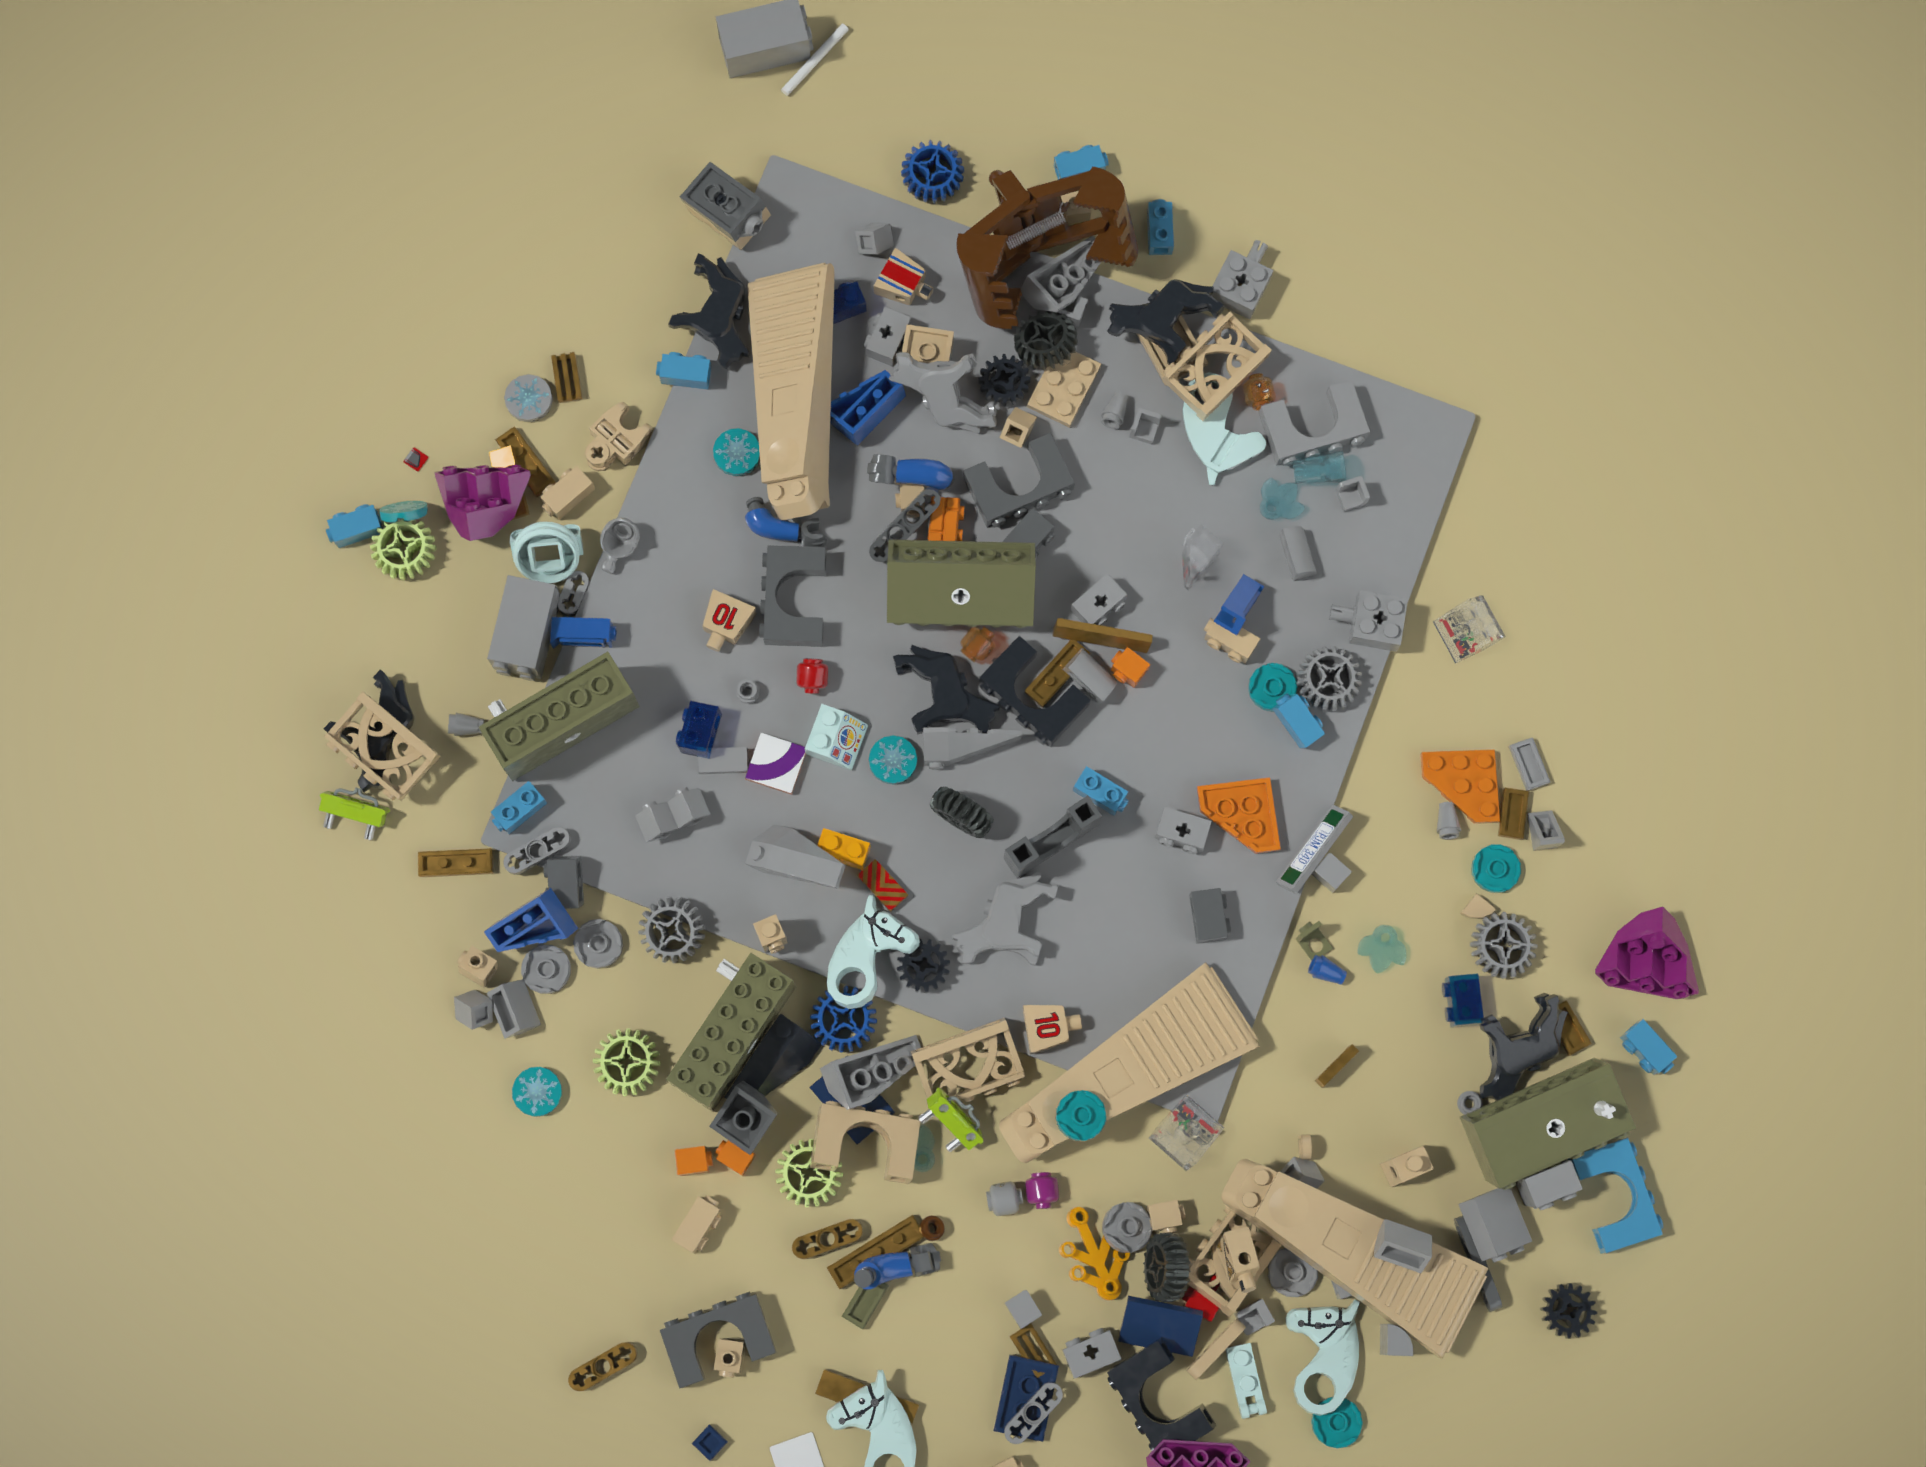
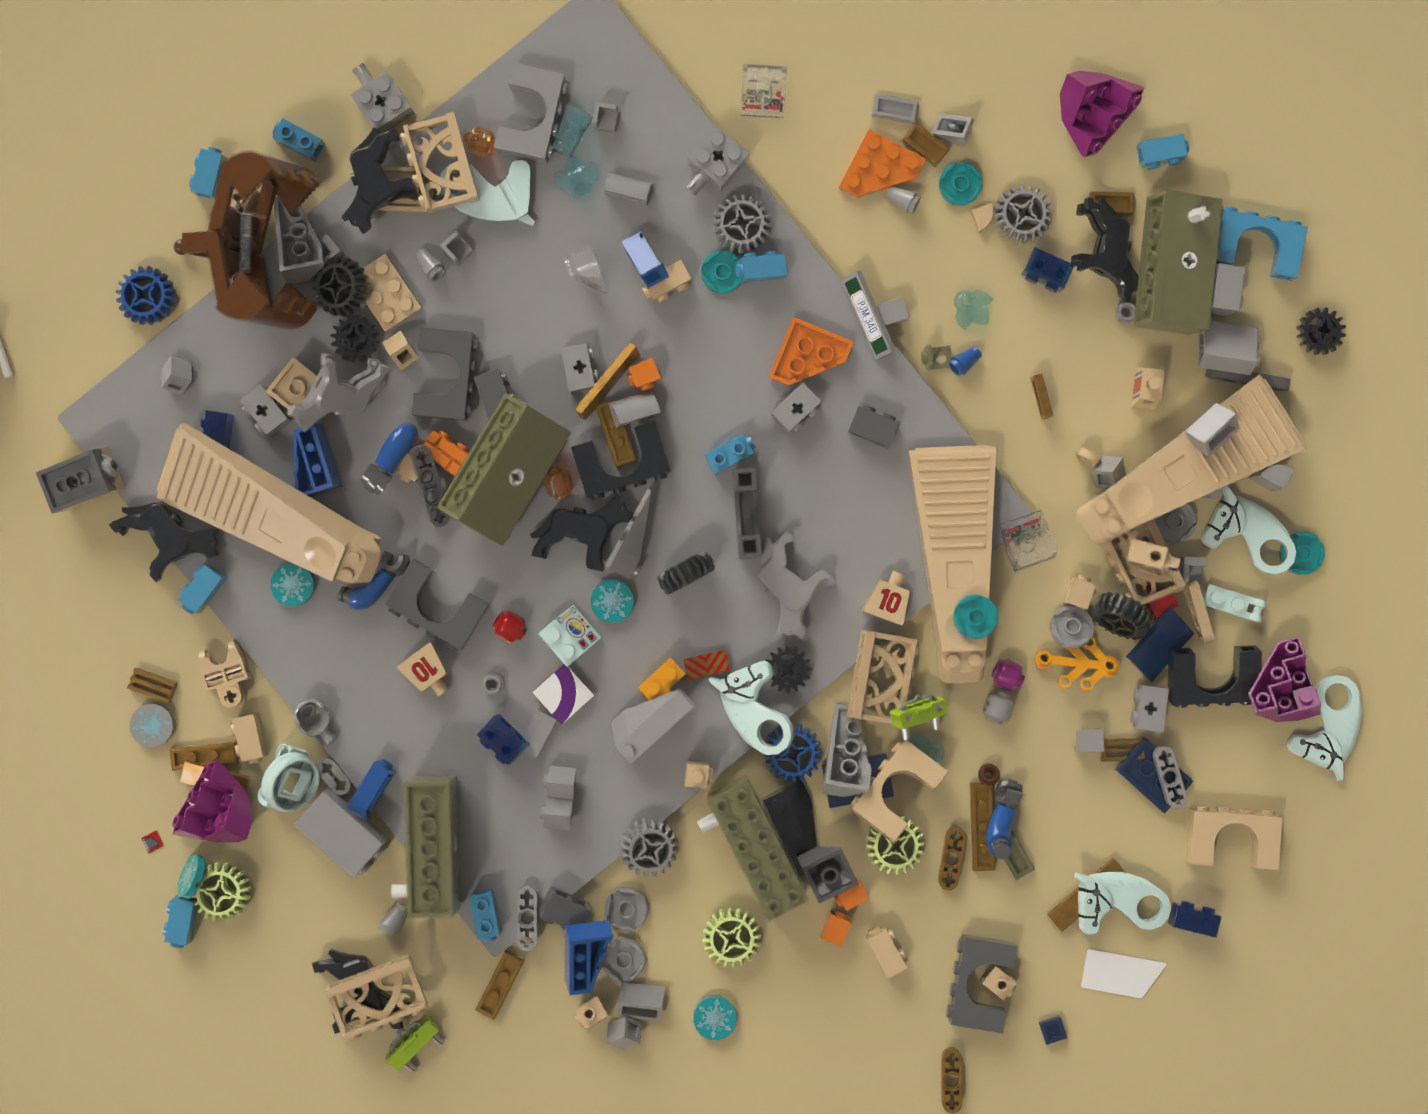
camera: 55 degrees left, 10 degrees up
(902, 280) = (224, 372): torso -> none

